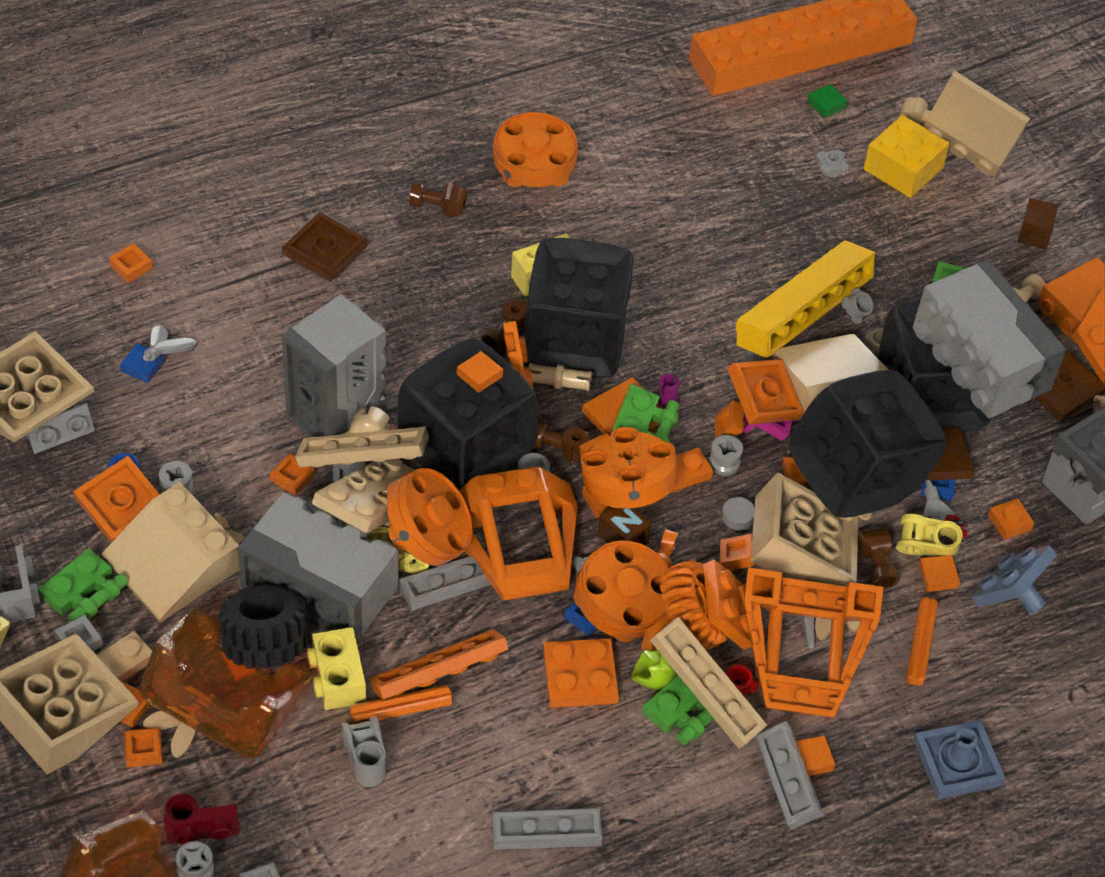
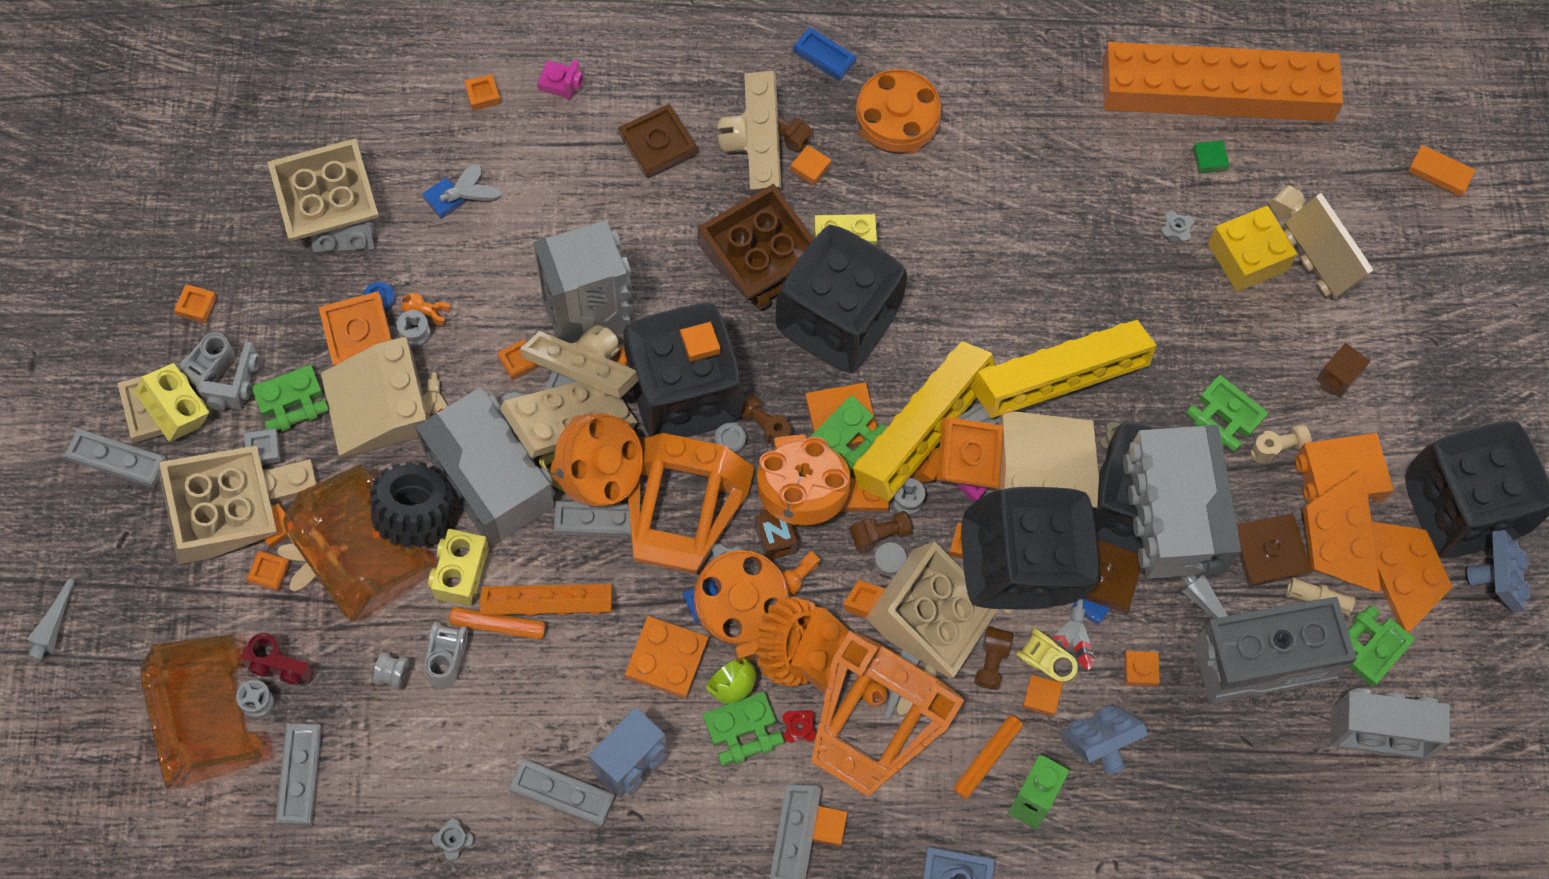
camera: 25 degrees right, 15 degrees up
(161, 457) = (416, 302): none -> orange arm
(202, 227) = (560, 79): none -> dark pink bracket
(320, 784) = (391, 671): none -> light grey wheel
(416, 206) = (756, 131): none -> tan plate
(439, 130) = (824, 54): none -> blue tile
(469, 293) = (755, 241): none -> reddish brown slope
(478, 221) = (810, 165): none -> orange tile
(516, 350) = (755, 336): orange wing -> none
(561, 377) = (799, 356): tan pin -> none
(598, 760) = (628, 753): none -> sand blue brick
(668, 389) = (886, 411): magenta pin -> none
(706, 386) = (918, 426): none -> yellow brick
(707, 498) = (868, 533): none -> reddish brown leg
(708, 683) = (761, 723): tan plate -> none
(791, 625) = (875, 691): none -> orange arm
(858, 305) = (1124, 390): light grey plate -> none
(984, 634) = (1038, 790): none -> bright green torso
(1023, 49) = (1441, 170): none -> orange tile
(1026, 440) = (1203, 595): none -> light grey piece

